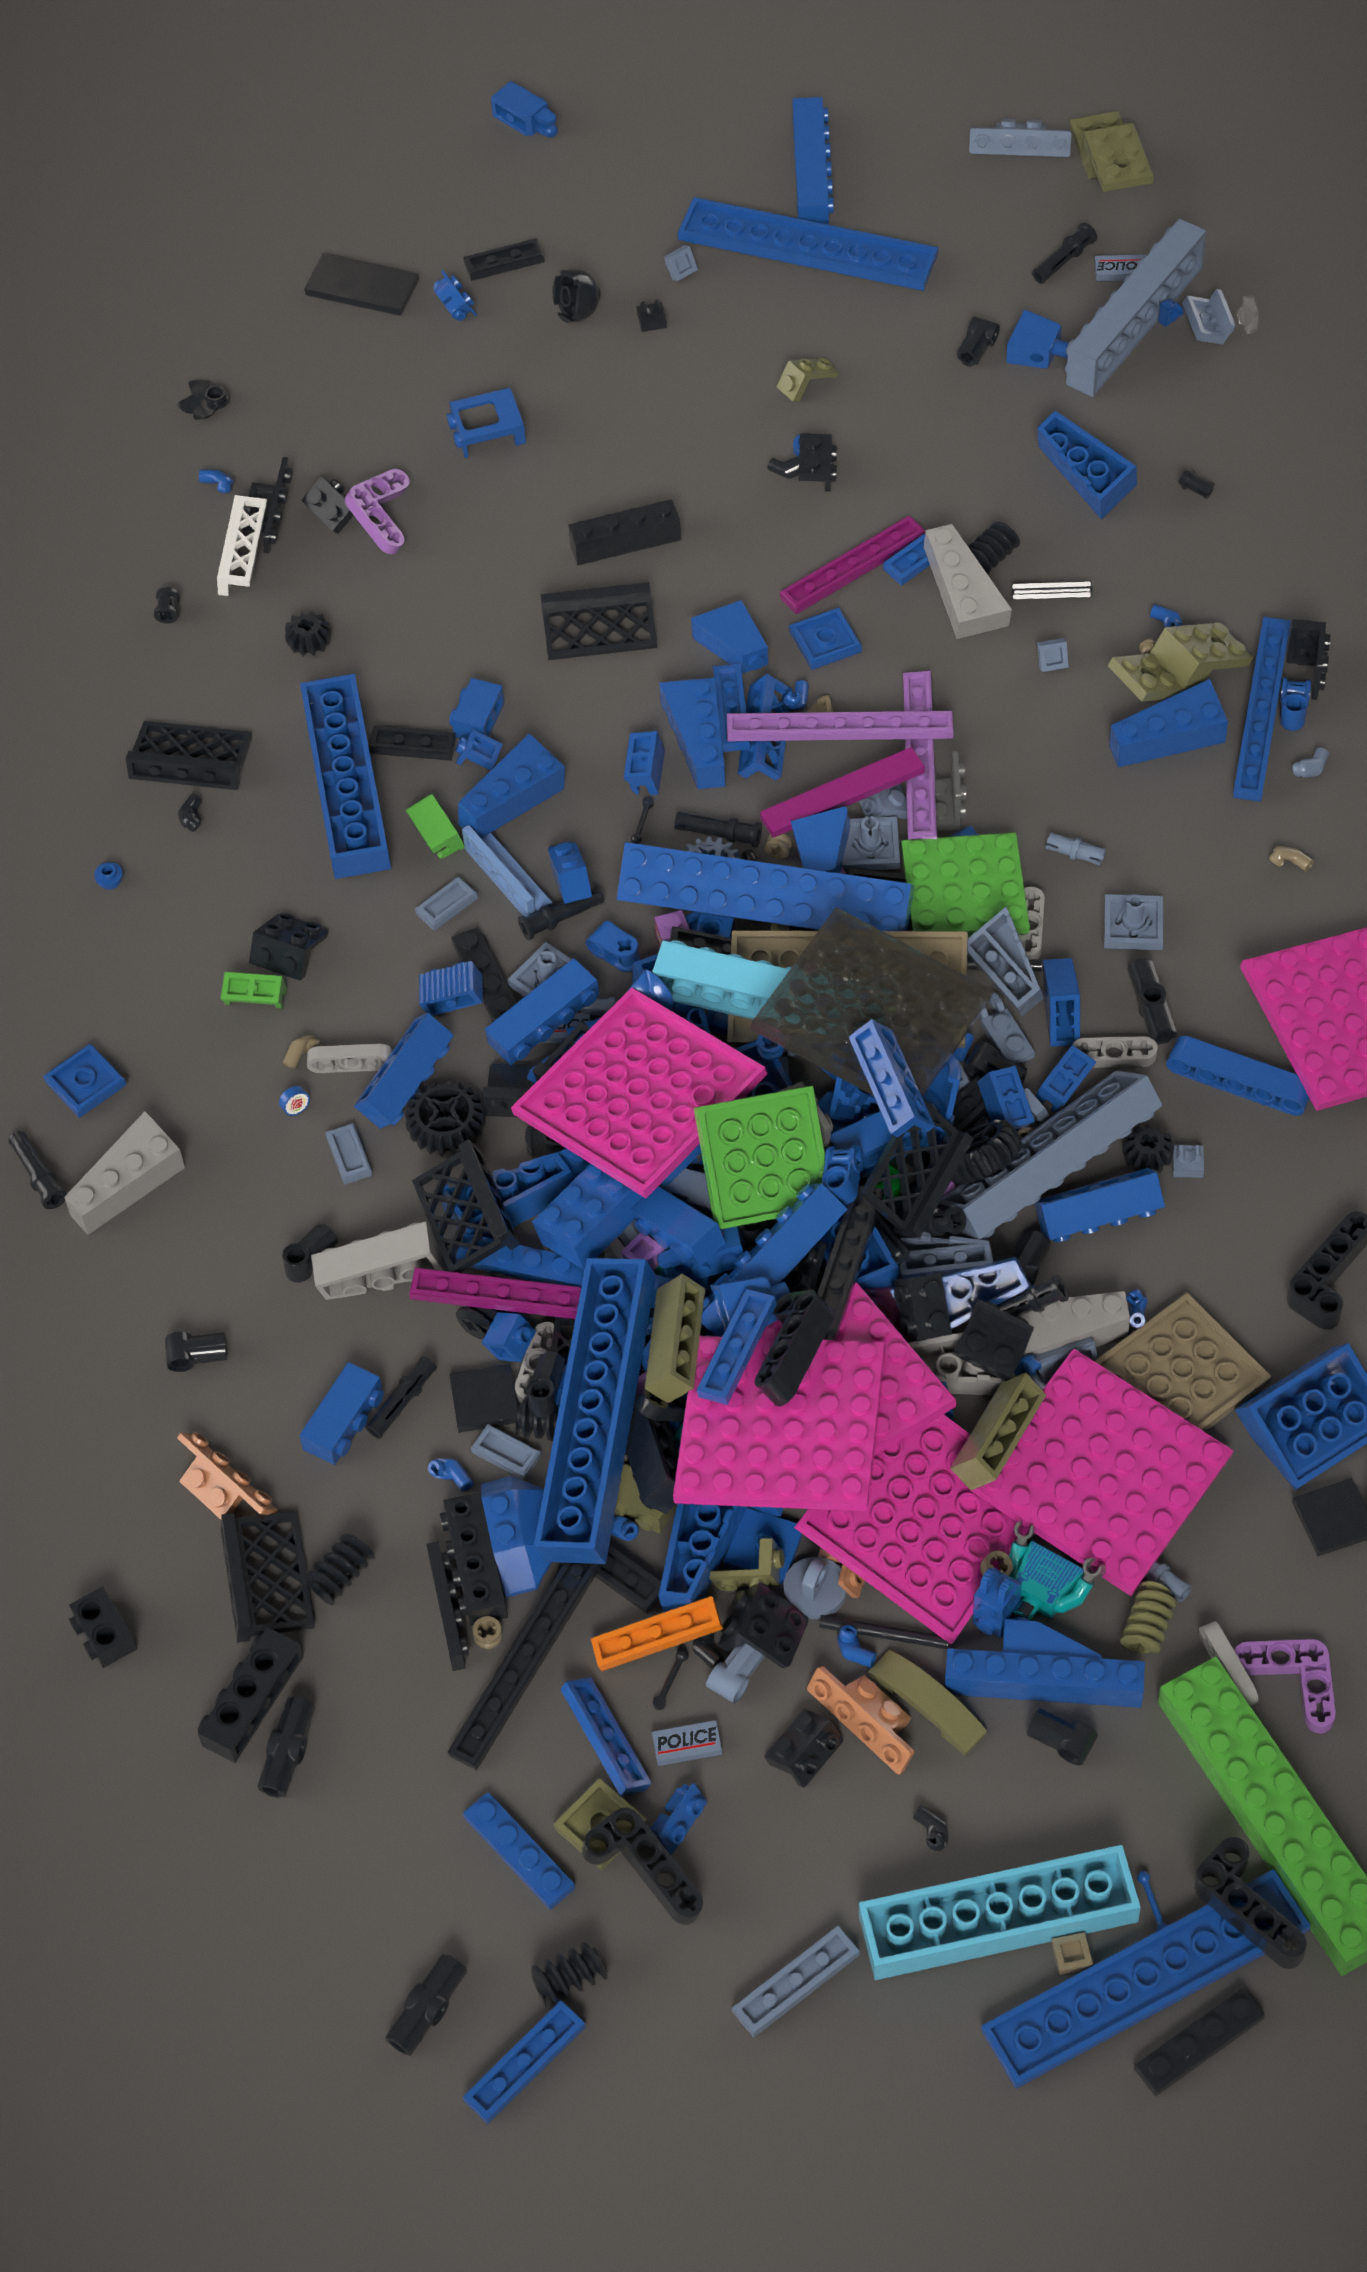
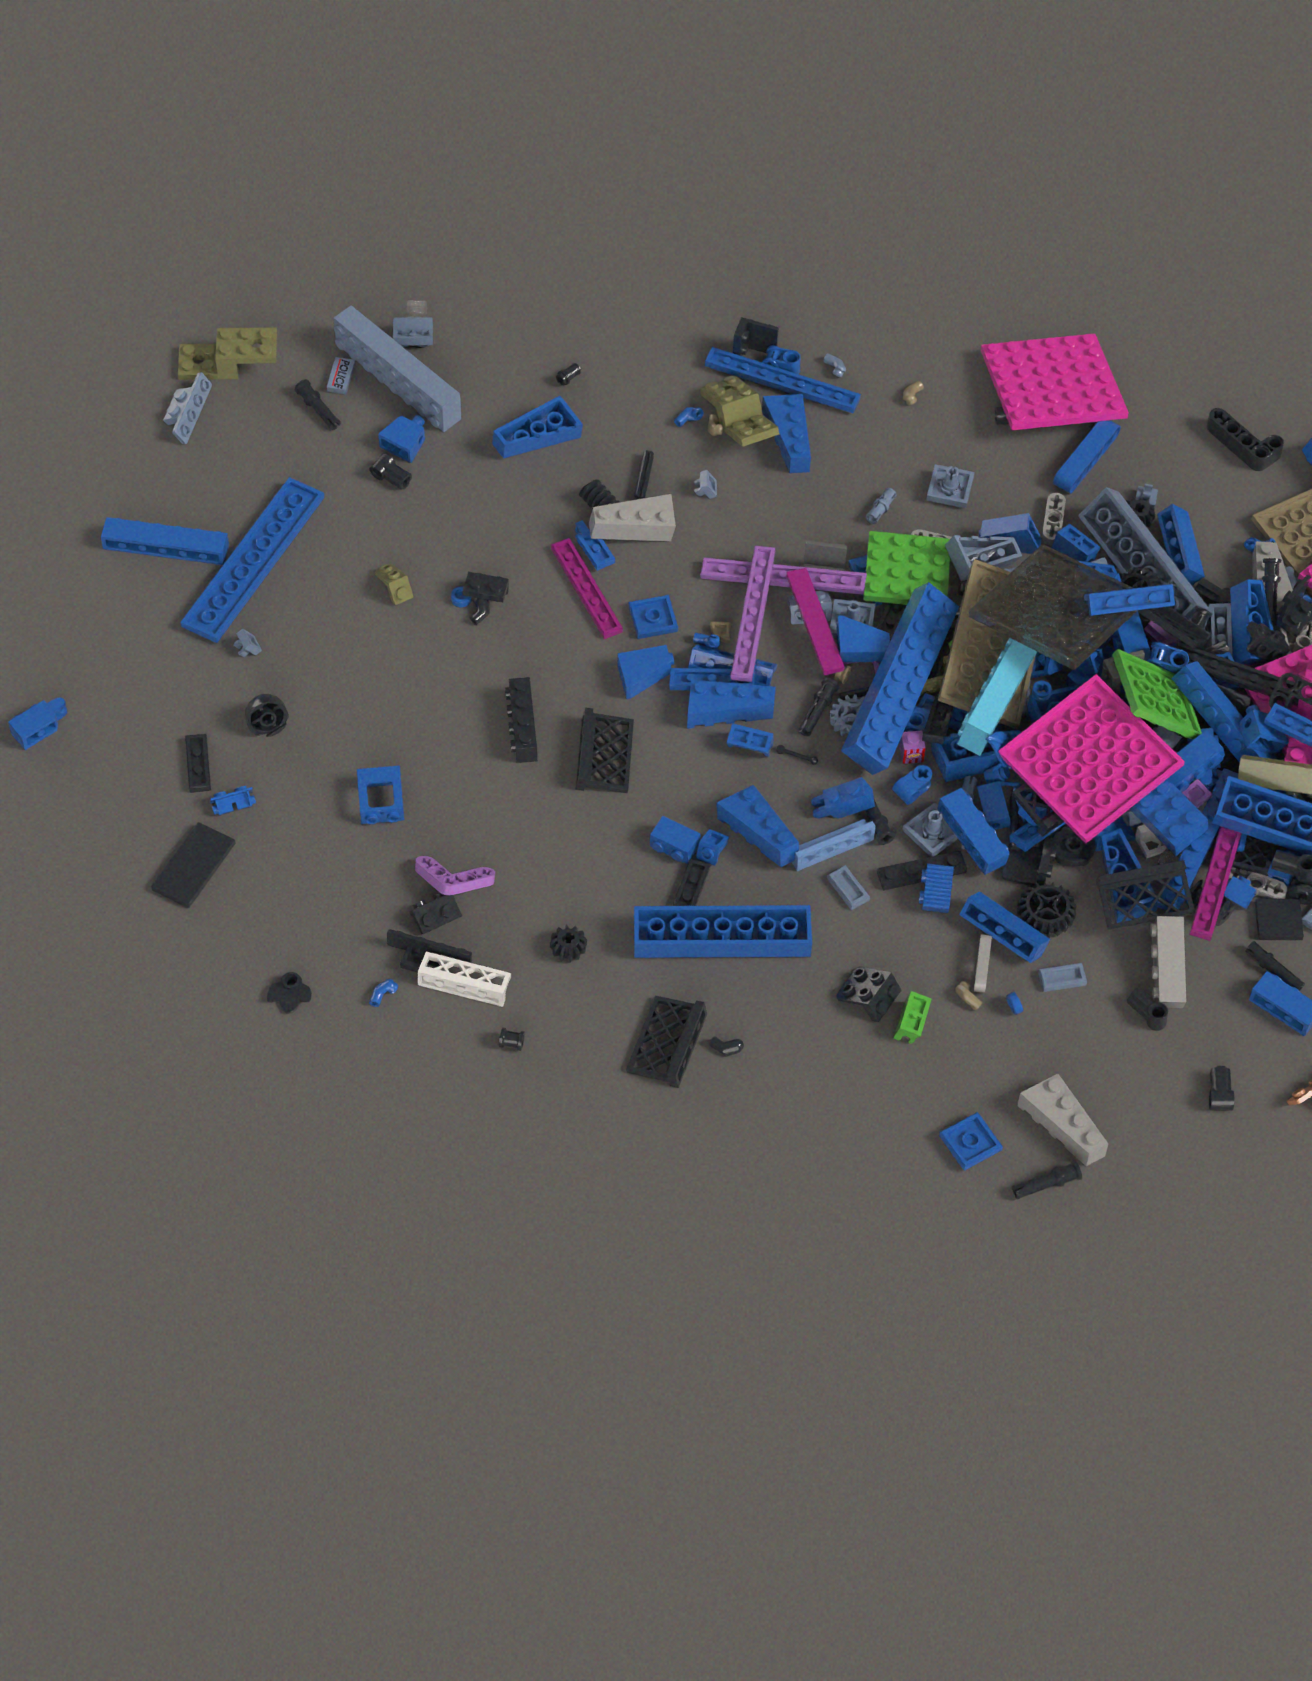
camera: 85 degrees left, 0 degrees up
(108, 881) = (776, 1113): blue plate -> none
(435, 827) = (779, 880): bright green hinge -> none
(651, 316) = (295, 672): black tile -> none
(1148, 988) = (1019, 488): black piece -> none

